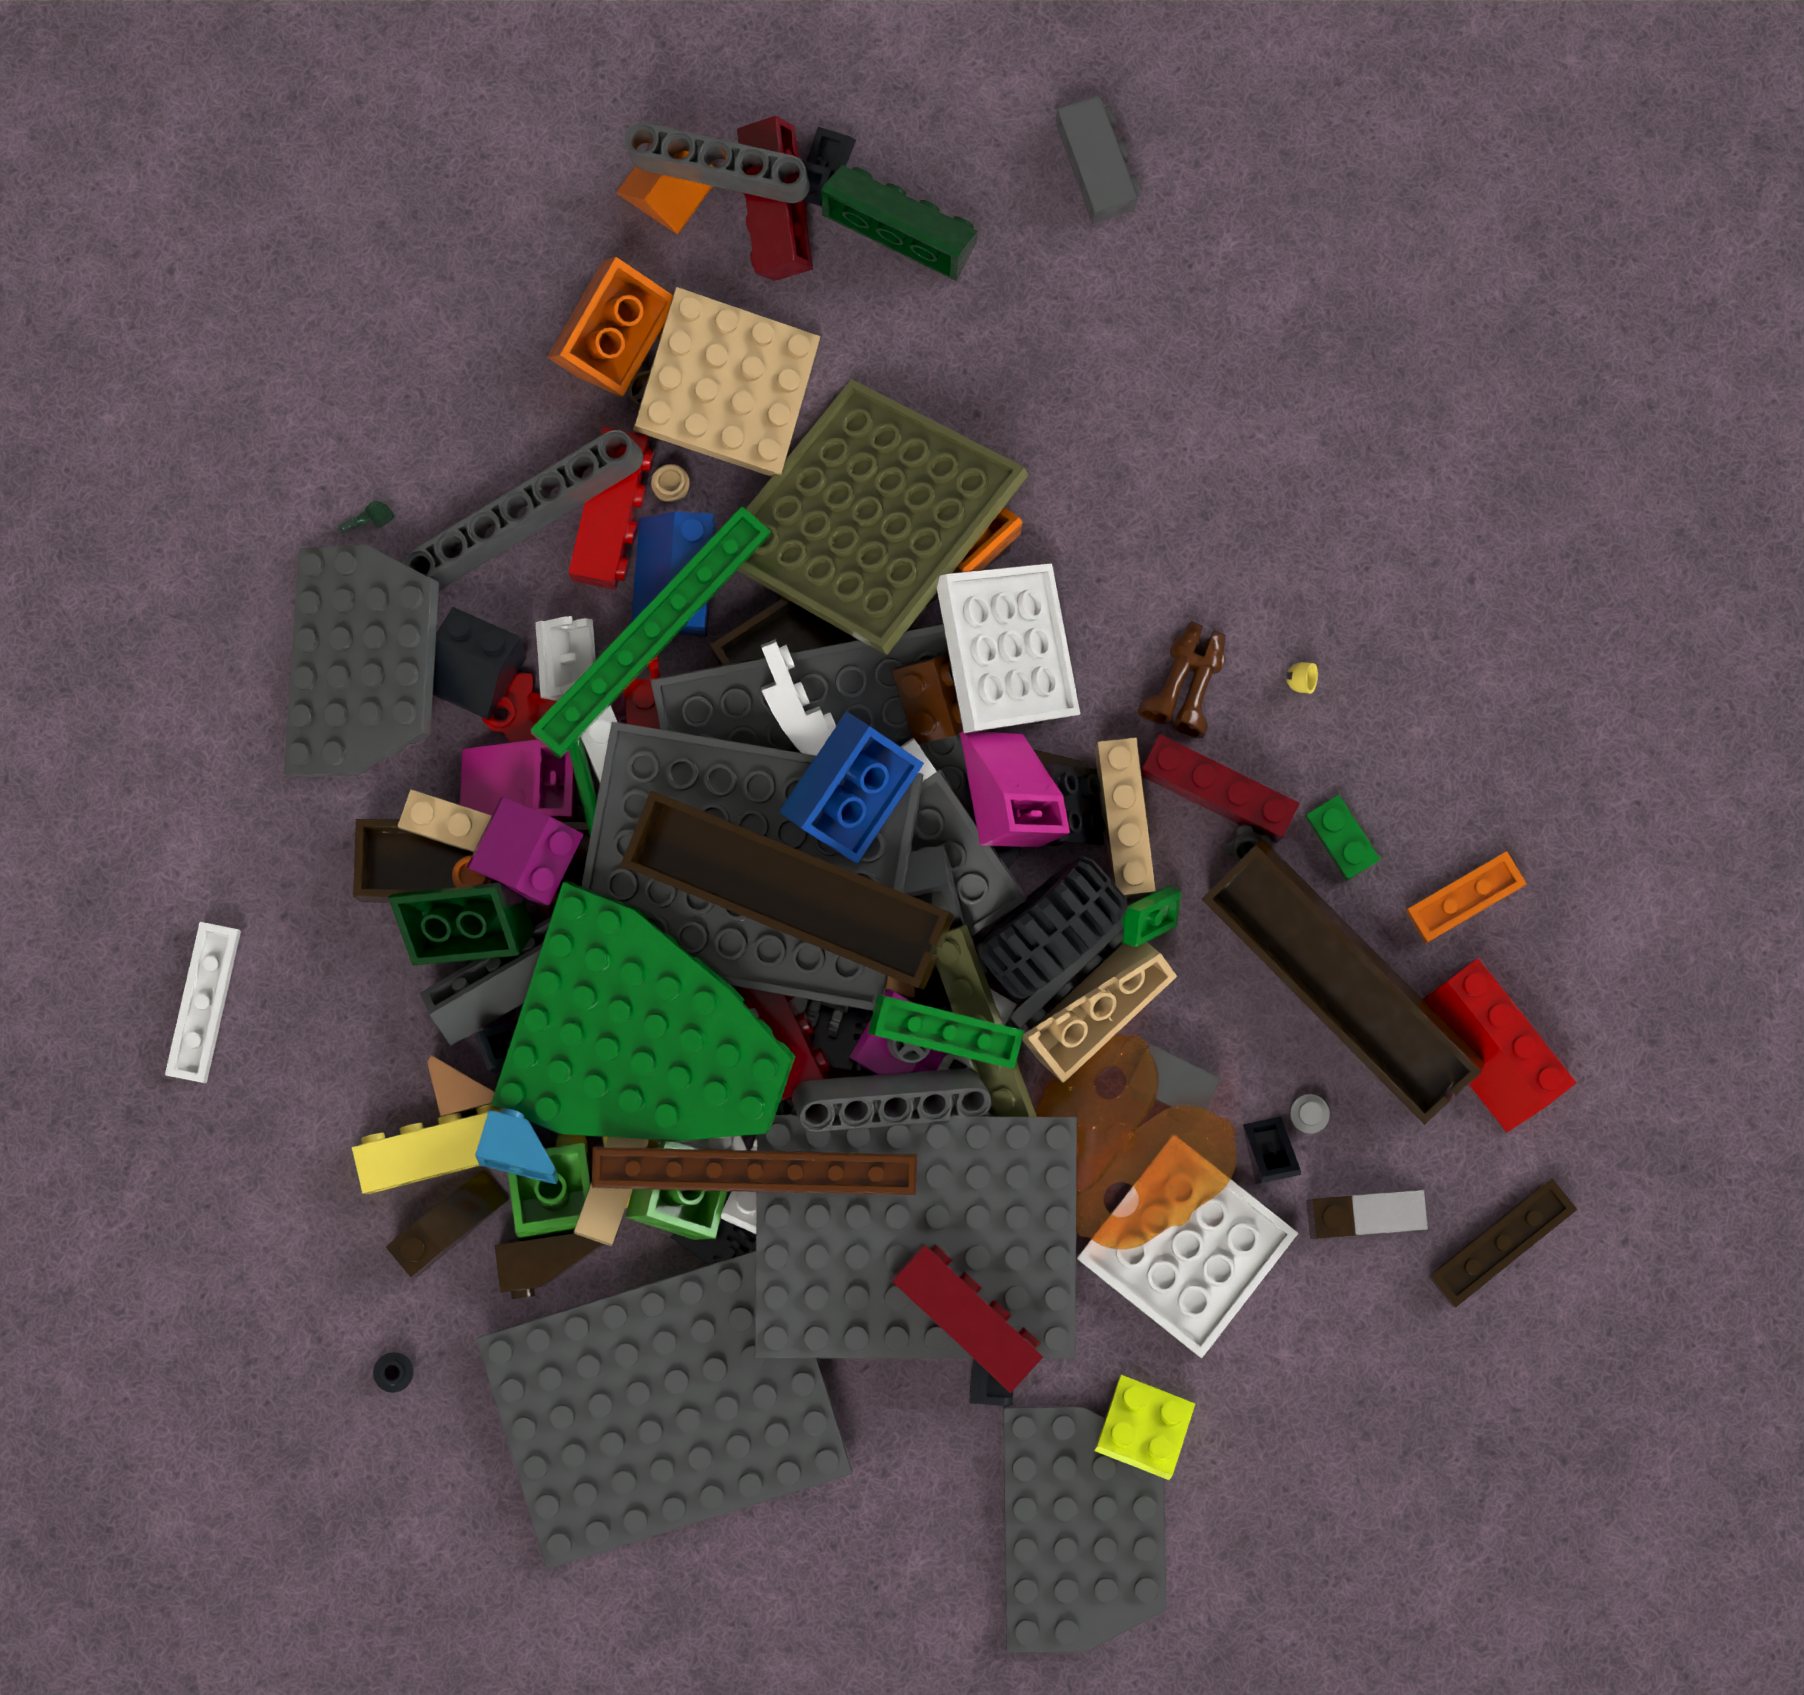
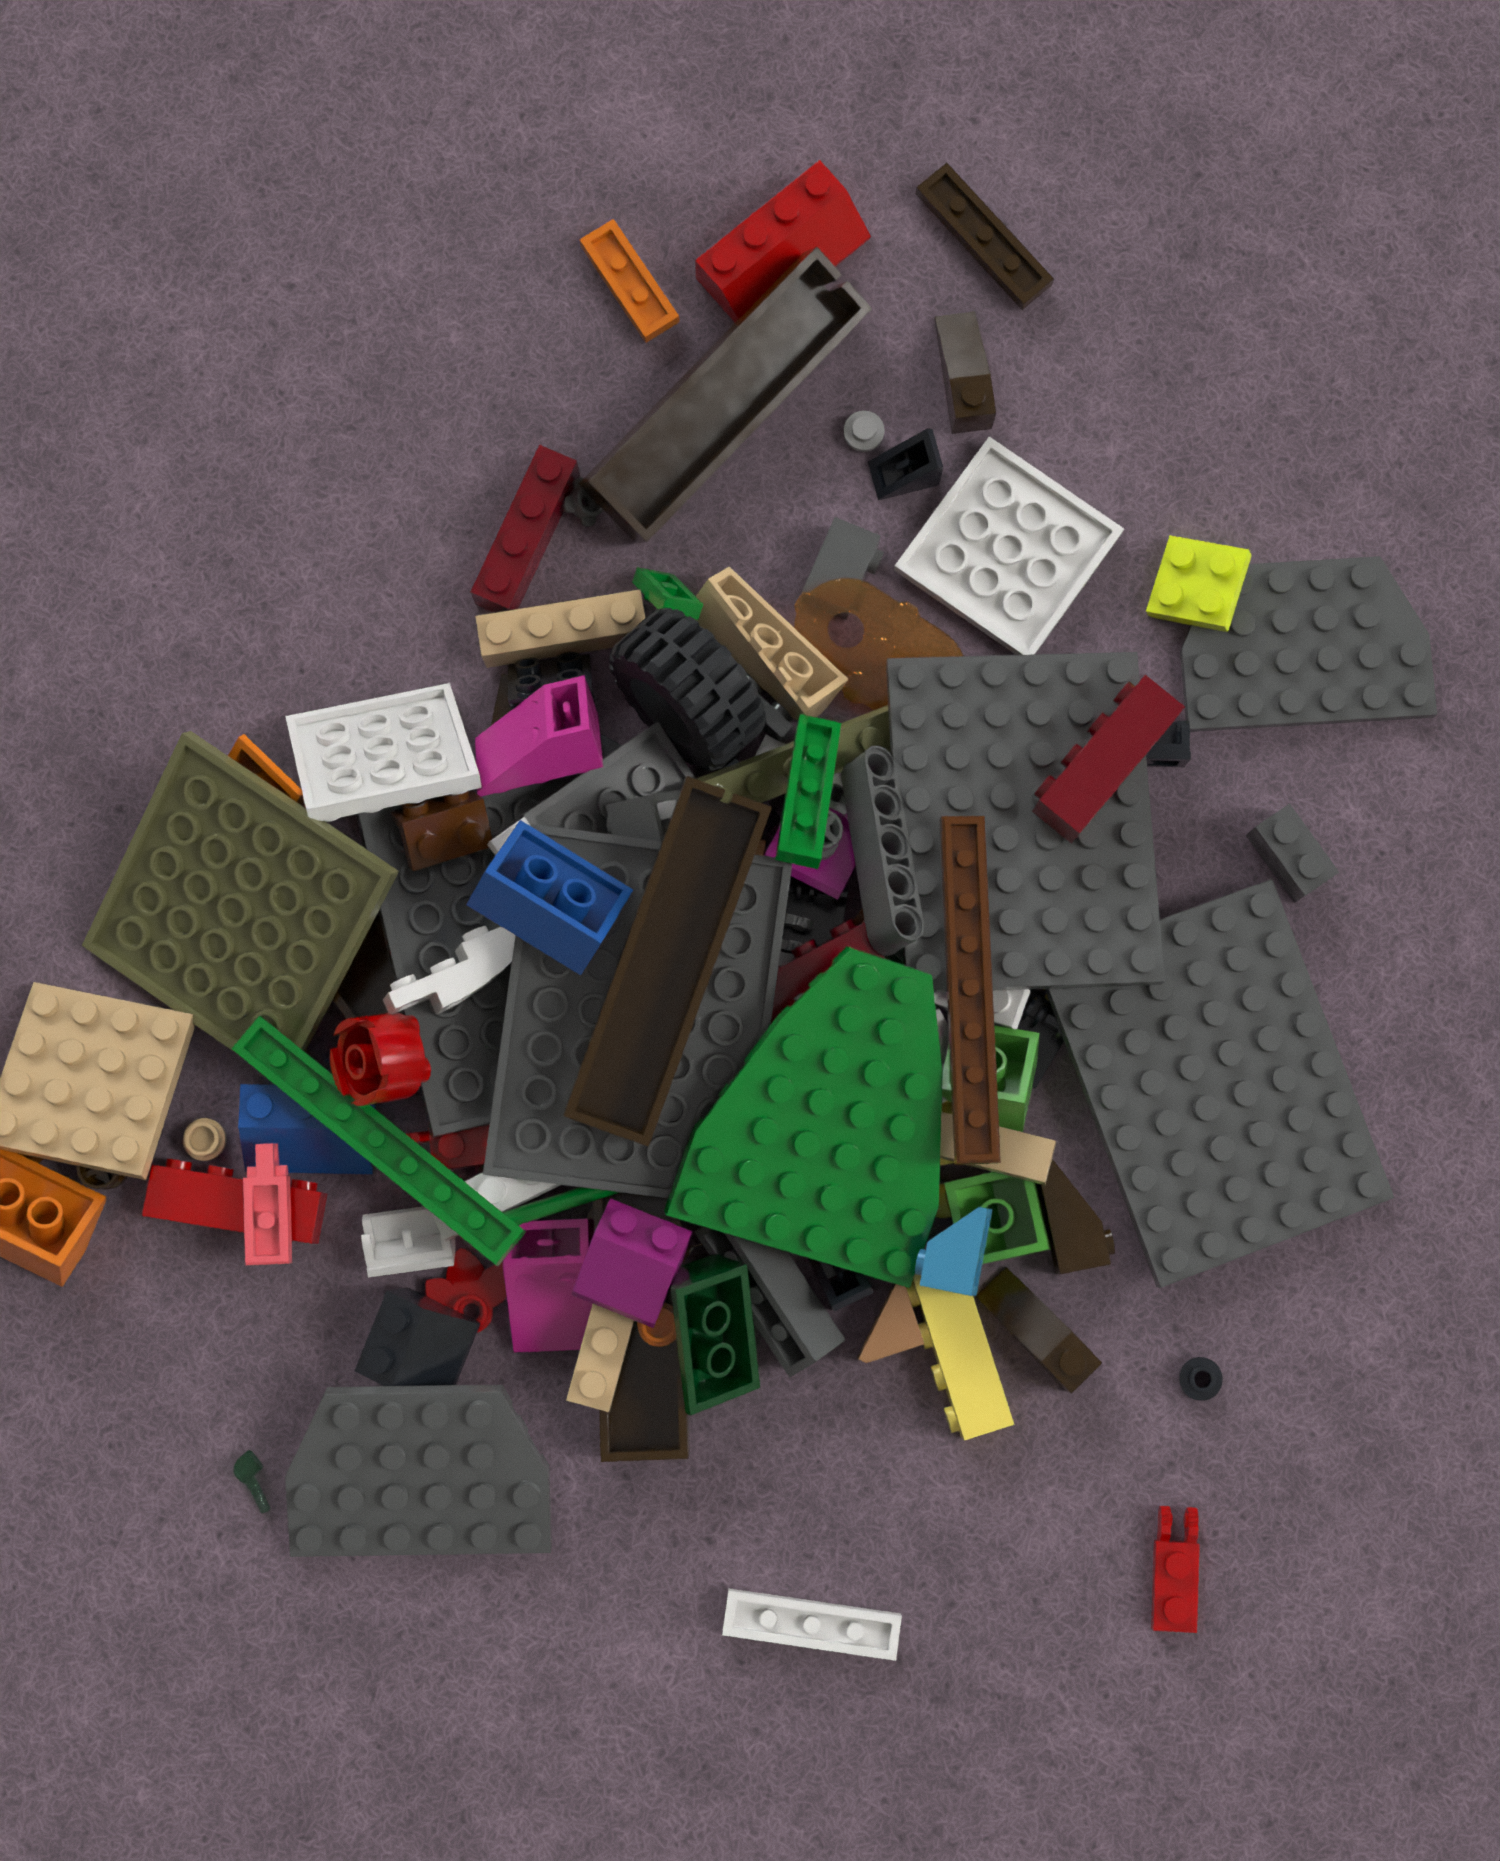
camera: 90 degrees left, 0 degrees up
(218, 1336) = (1175, 1574): none -> red hinge
(541, 509) = (239, 1277): dark grey beam -> none
(599, 534) = (267, 1209): none -> coral hinge
(721, 634) = (379, 1058): none -> red brick
(876, 1497) = (1292, 853): none -> dark grey brick
(1162, 705) = (439, 593): reddish brown piece -> none
(1174, 1166) = (931, 559): clear orange piece -> none
(1303, 678) = (401, 451): light yellow hinge -> none
(1342, 837) = (571, 407): green plate -> none

